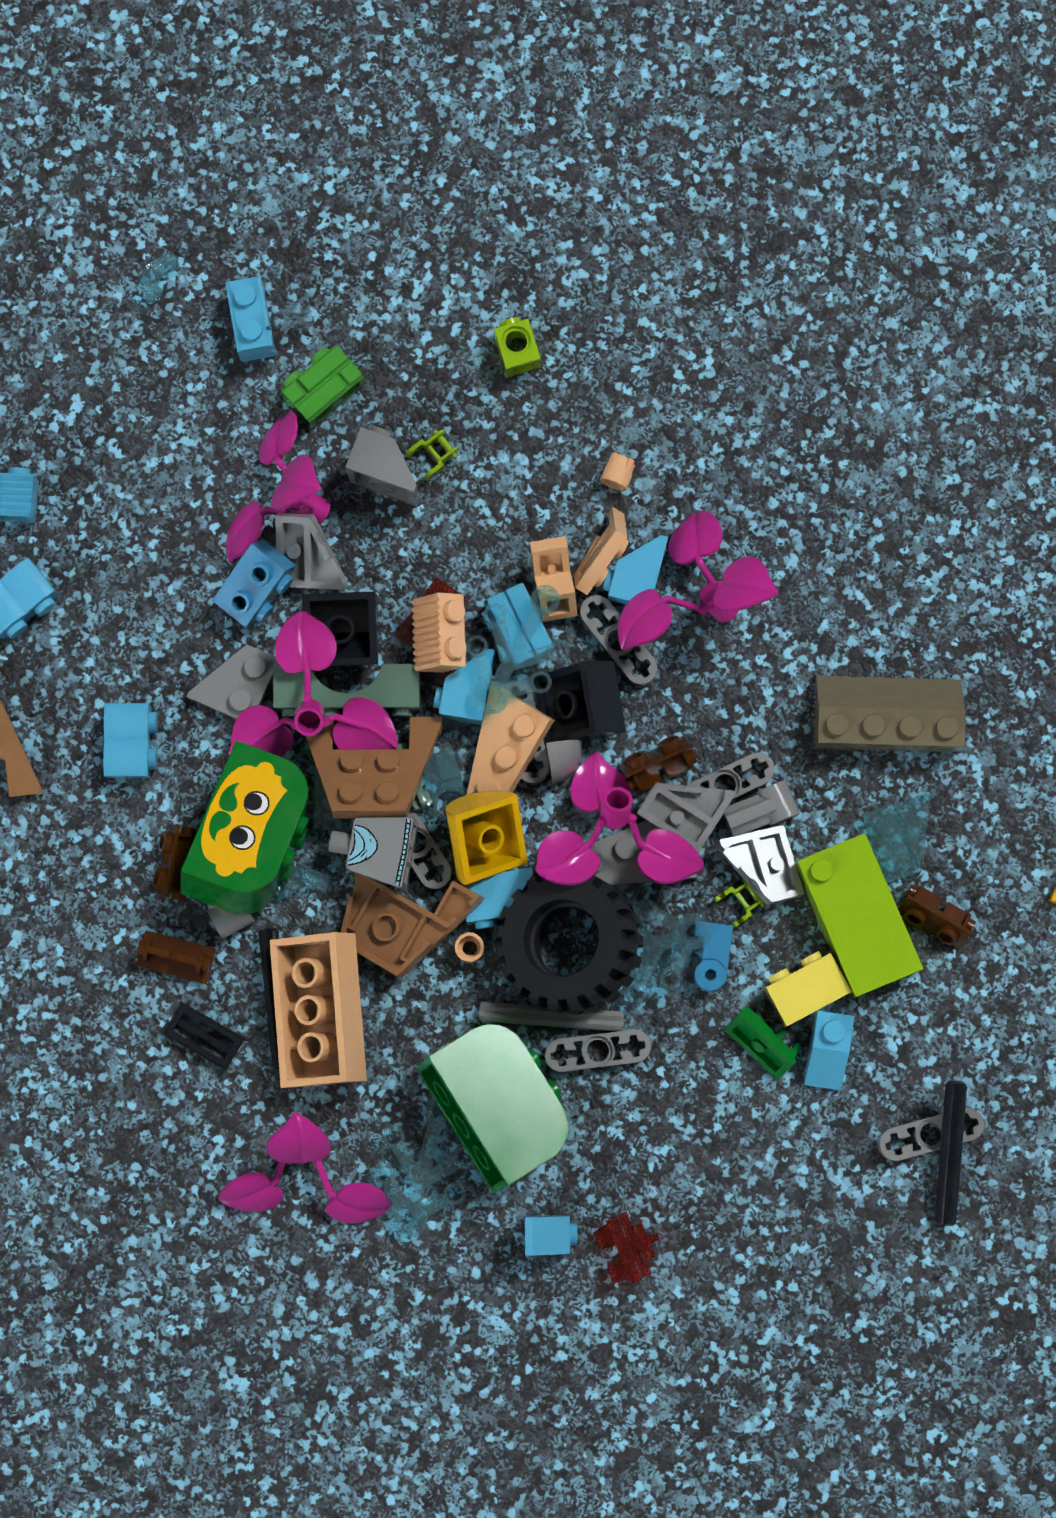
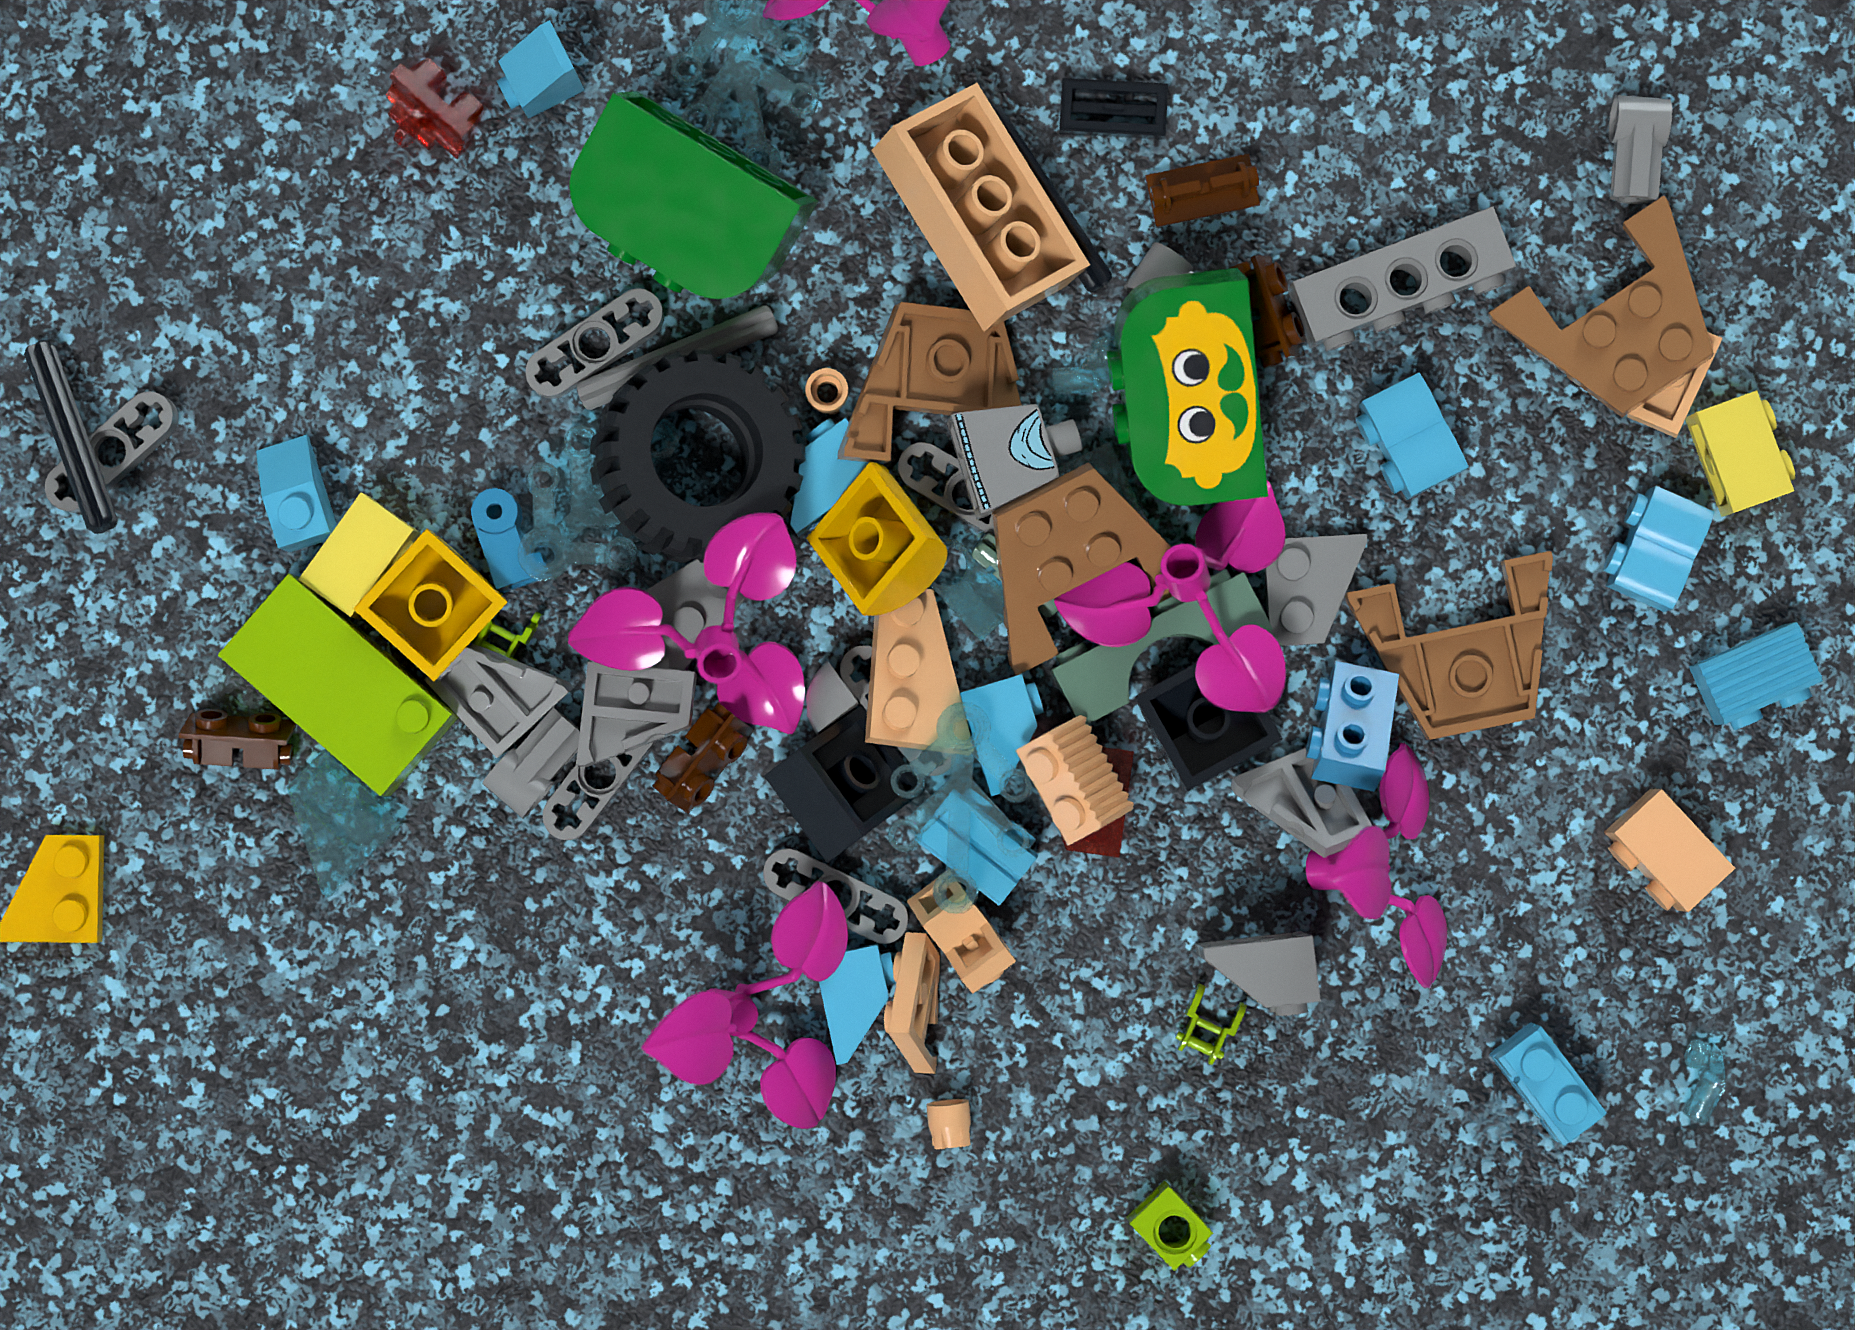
camera: 150 degrees right, 5 degrees up
(26, 843) = (1473, 237): none -> light grey brick
(106, 418) = (1667, 851): none -> light nougat brick
(166, 582) = (1467, 673): none -> medium nougat wing
(322, 385) = (1404, 1041): bright green brick -> none
(761, 1043) = (384, 459): green plate -> none
(776, 934) = (431, 604): none -> yellow brick
(889, 714) = (429, 978): dark tan slope -> none

